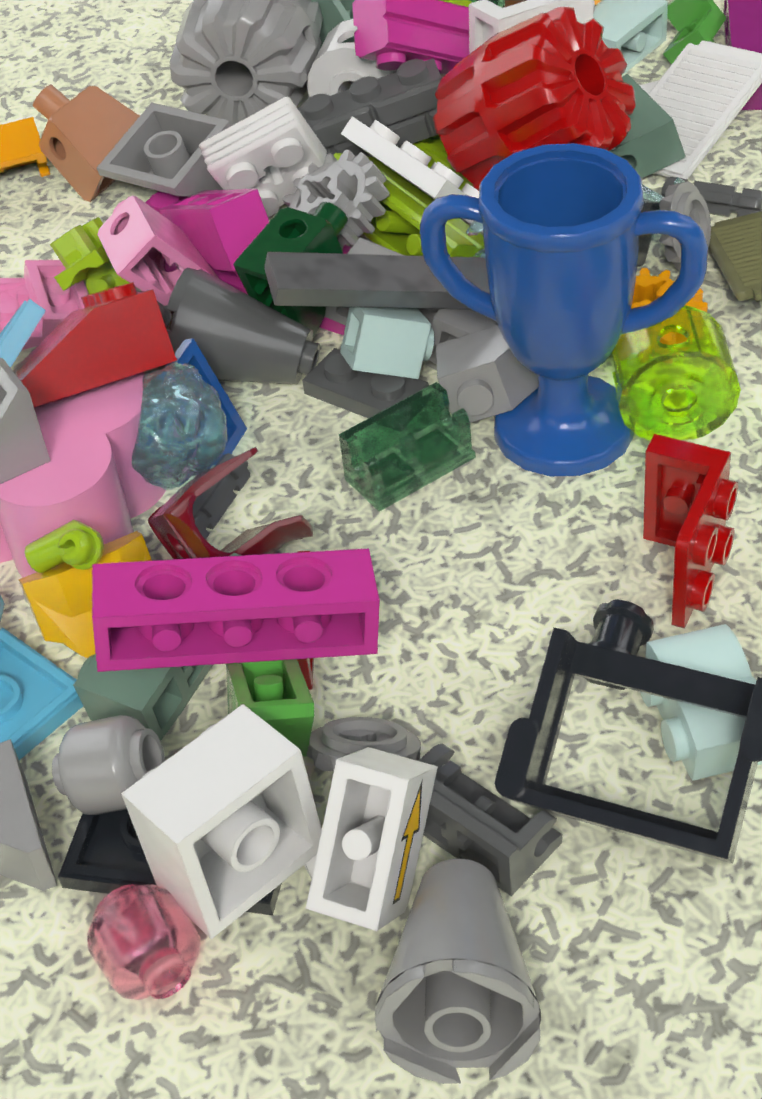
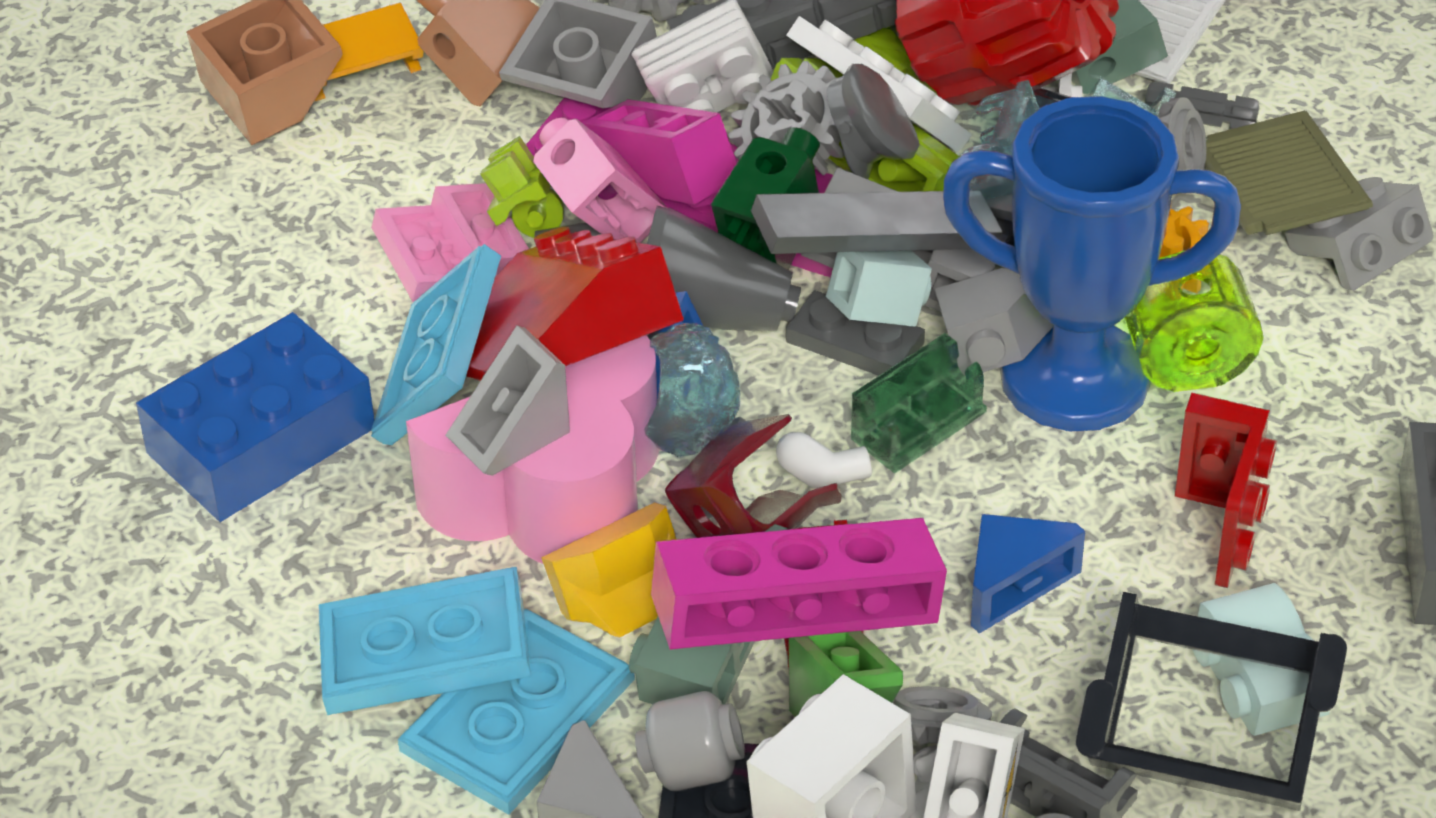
camera: 10 degrees left, 0 degrees up
(71, 543) = (601, 518): lime arm -> none
(300, 497) = (819, 465): none -> white arm
(389, 194) = (869, 120): none -> dark grey piece
(475, 598) = (1021, 563): none -> blue slope
(621, 628) = (1168, 588): black bush -> none

